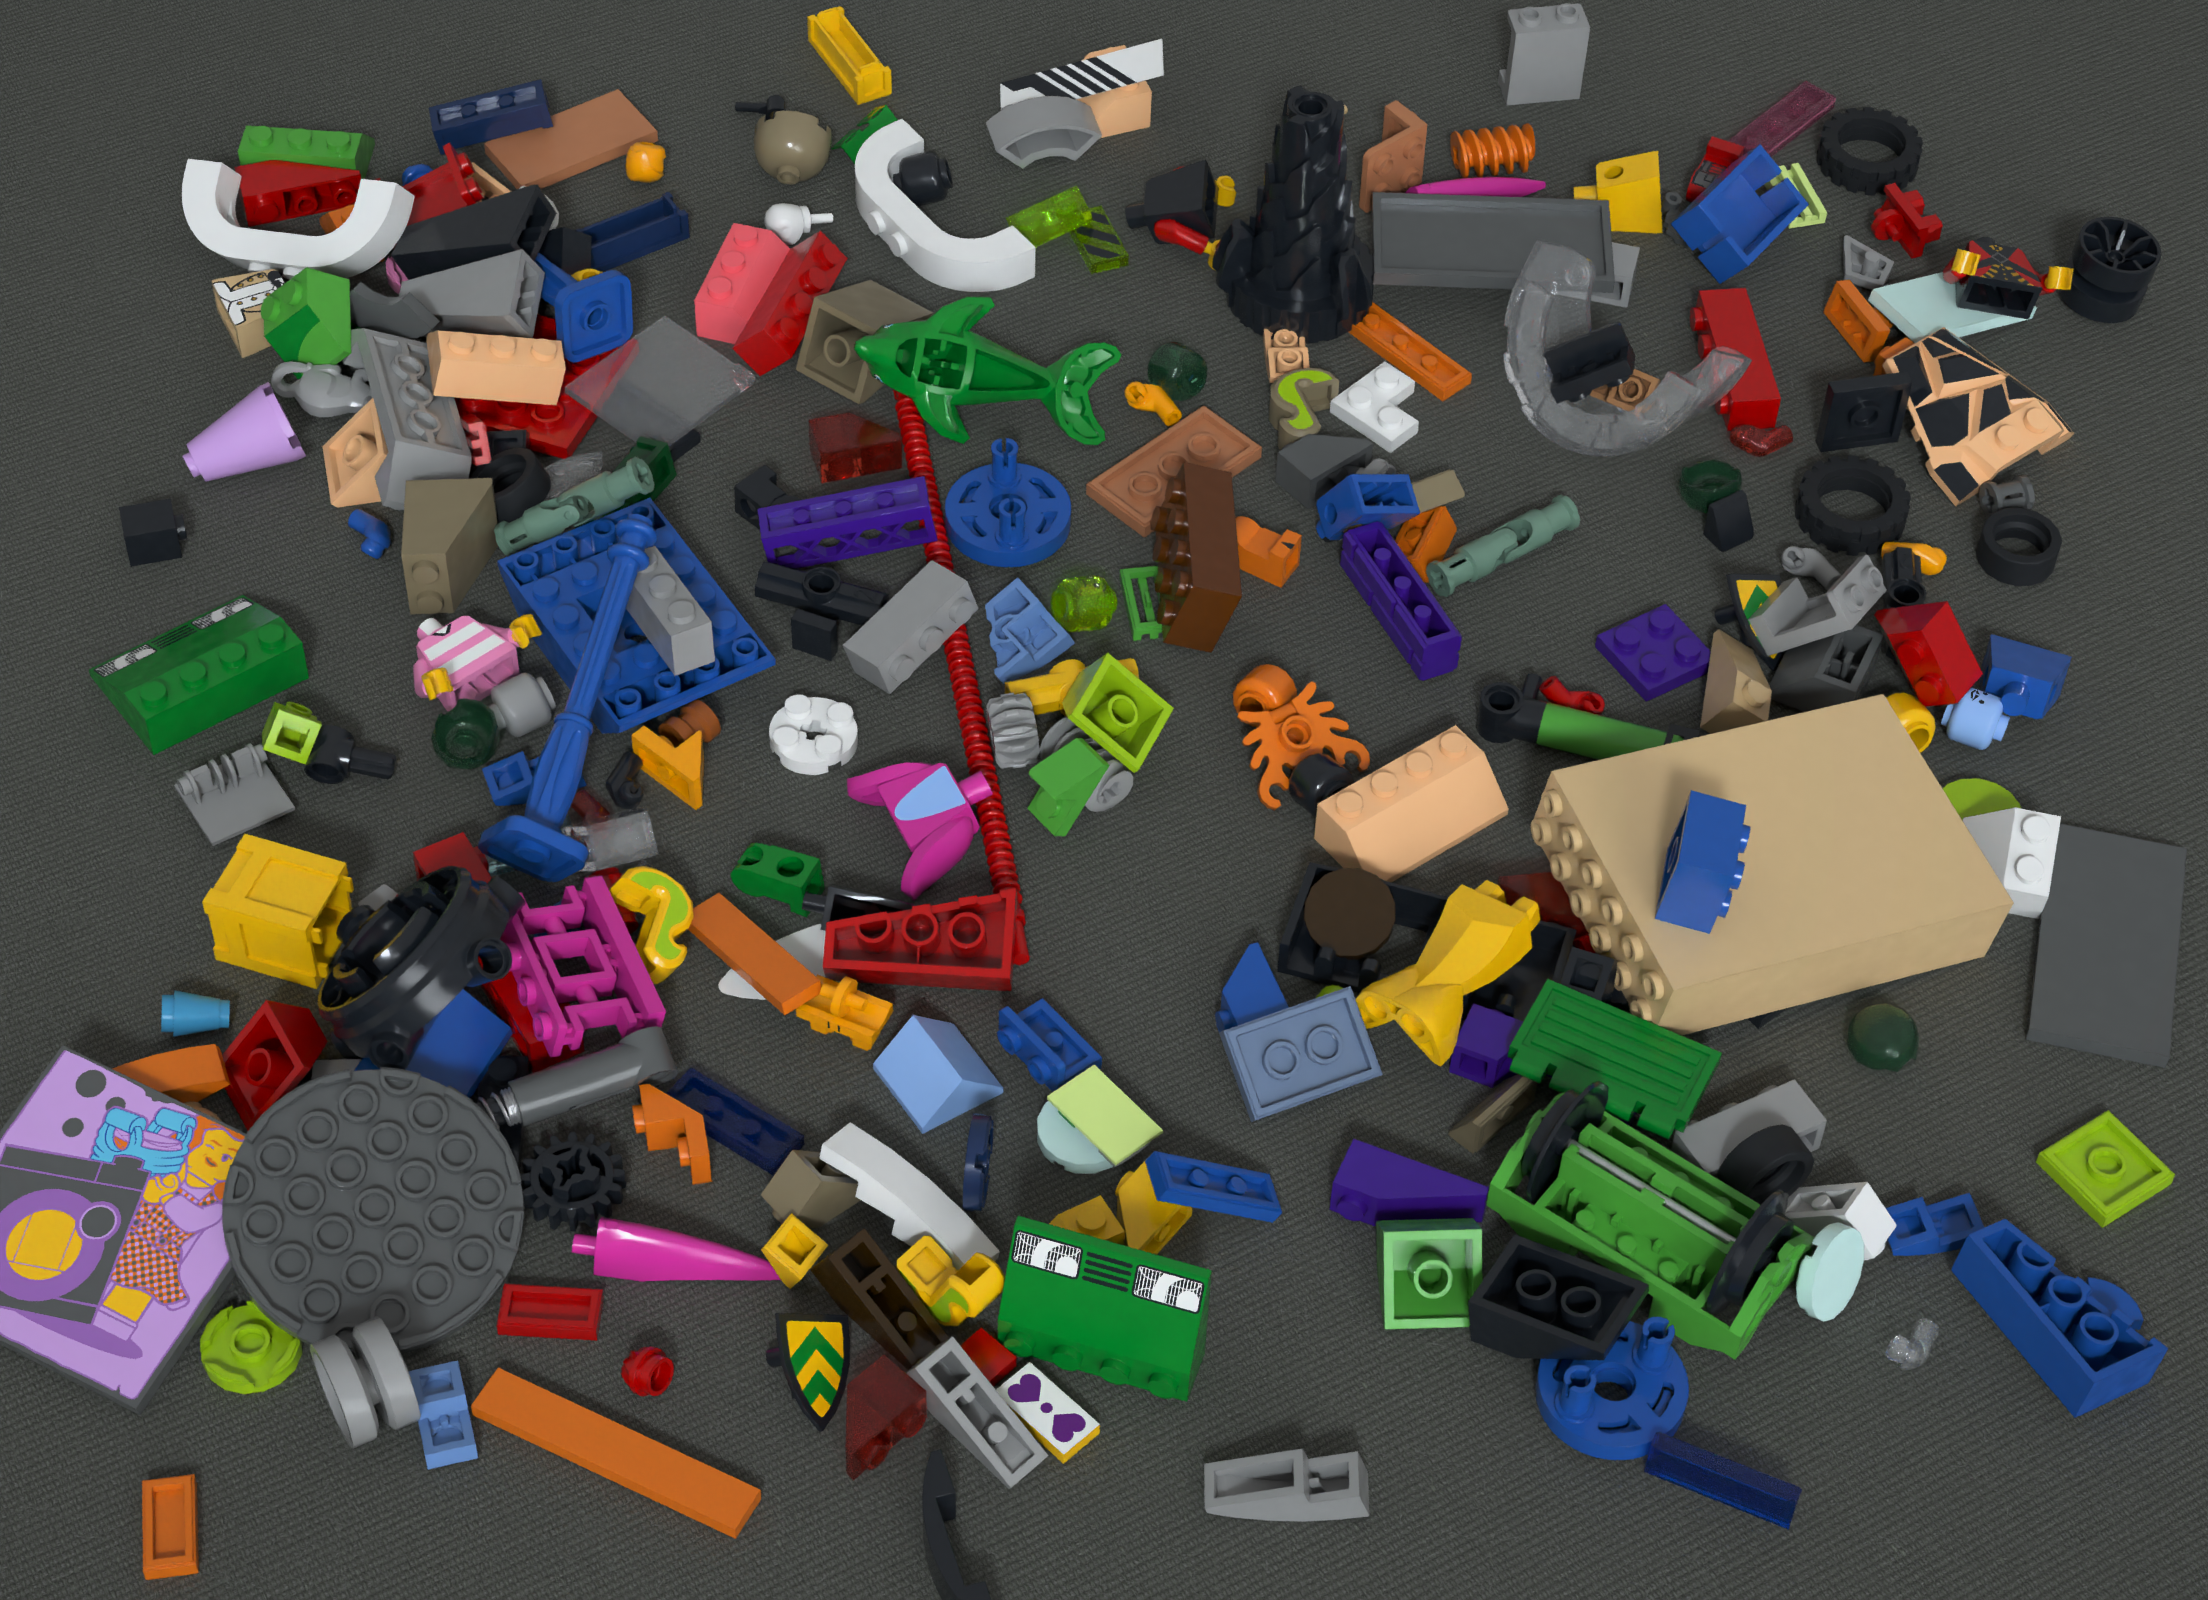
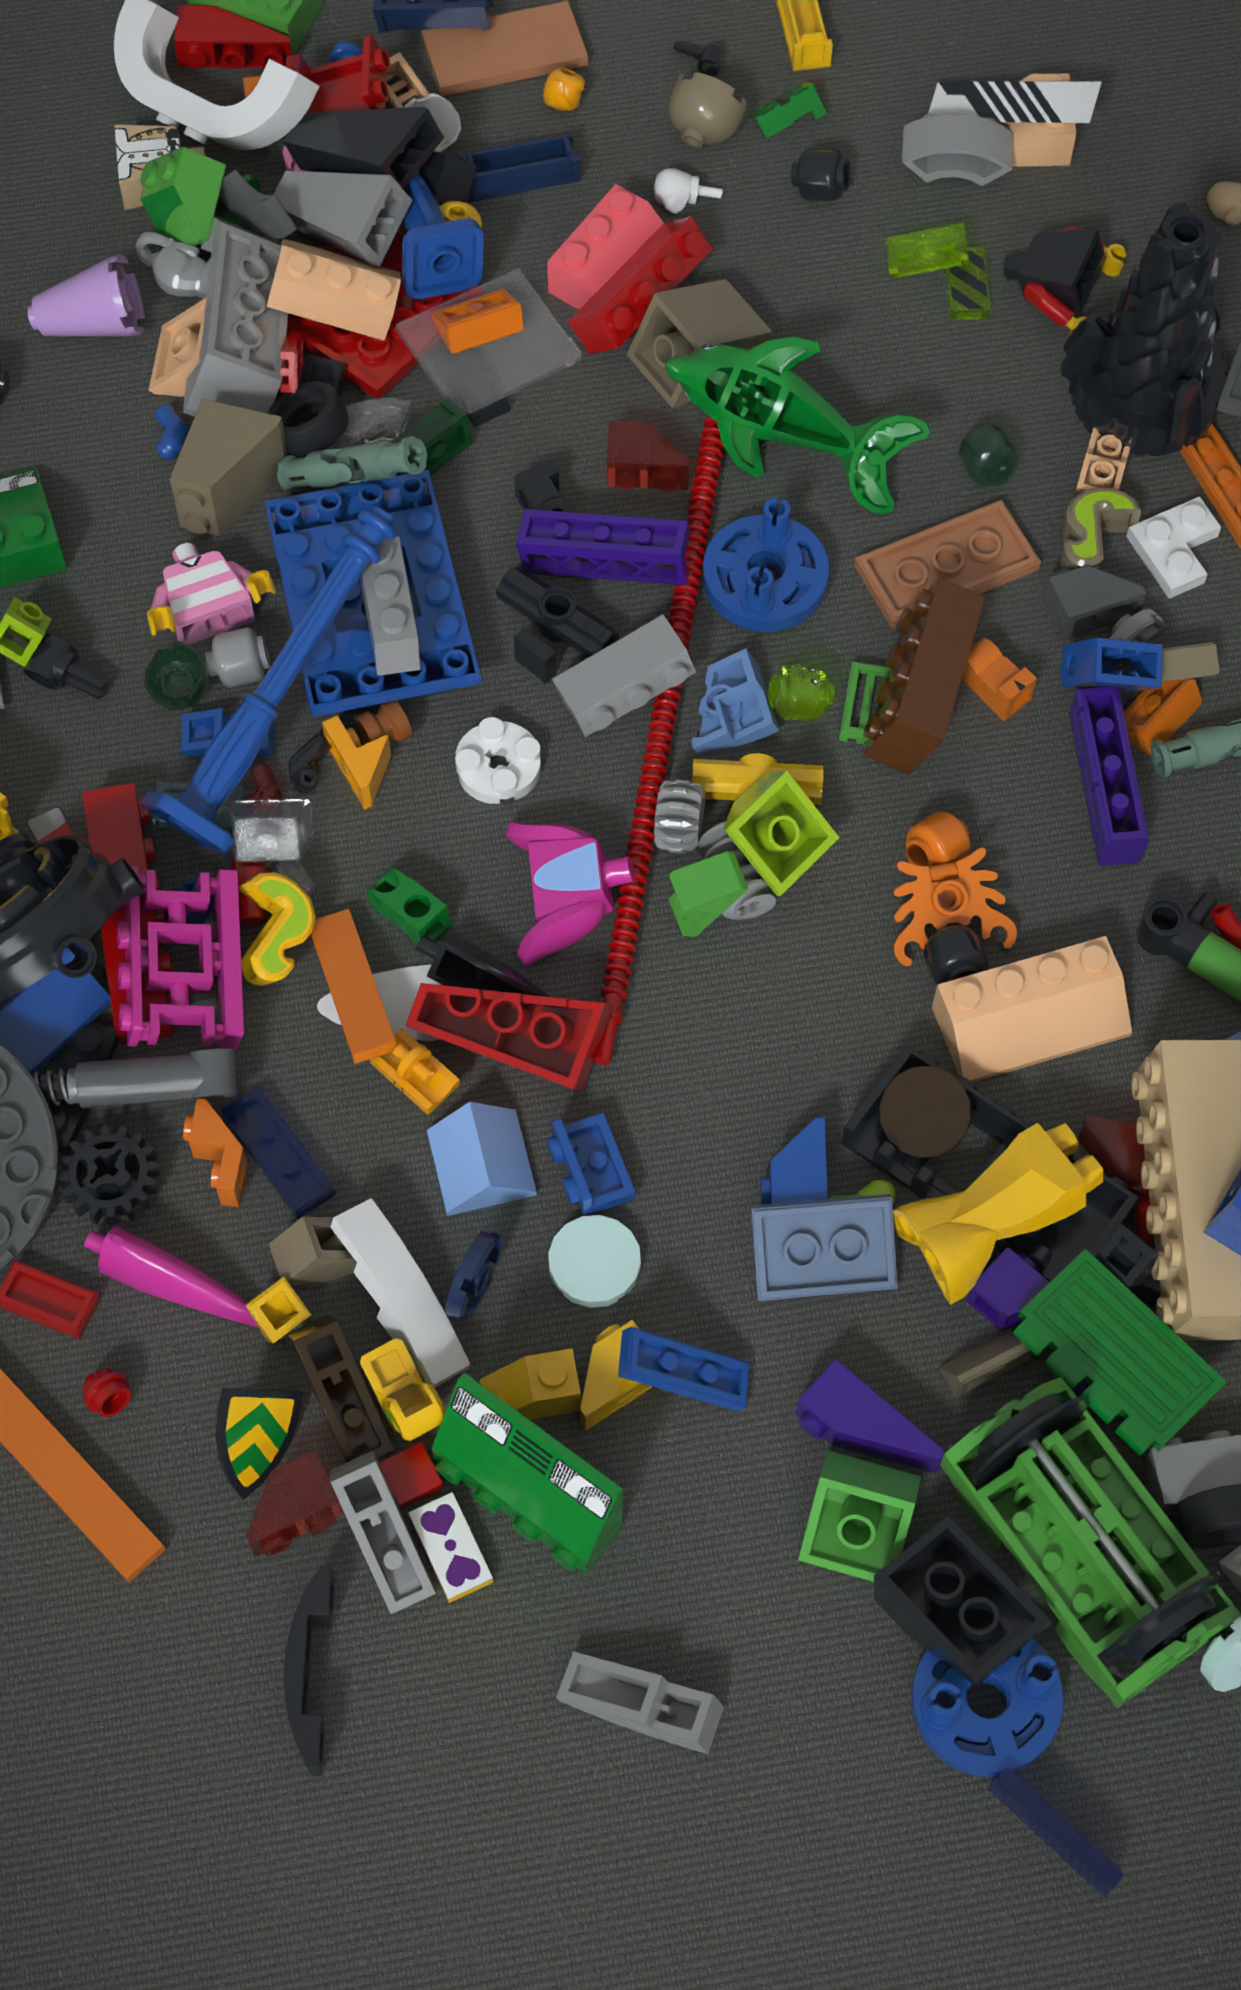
camera: 20 degrees right, 15 degrees up
(645, 365) = (479, 320): none -> orange slope
(943, 259) = (821, 279): white arch -> none
(1104, 1115) = (612, 1258): yellowish green piece -> none
(1153, 399) = (955, 479): light orange arm -> none

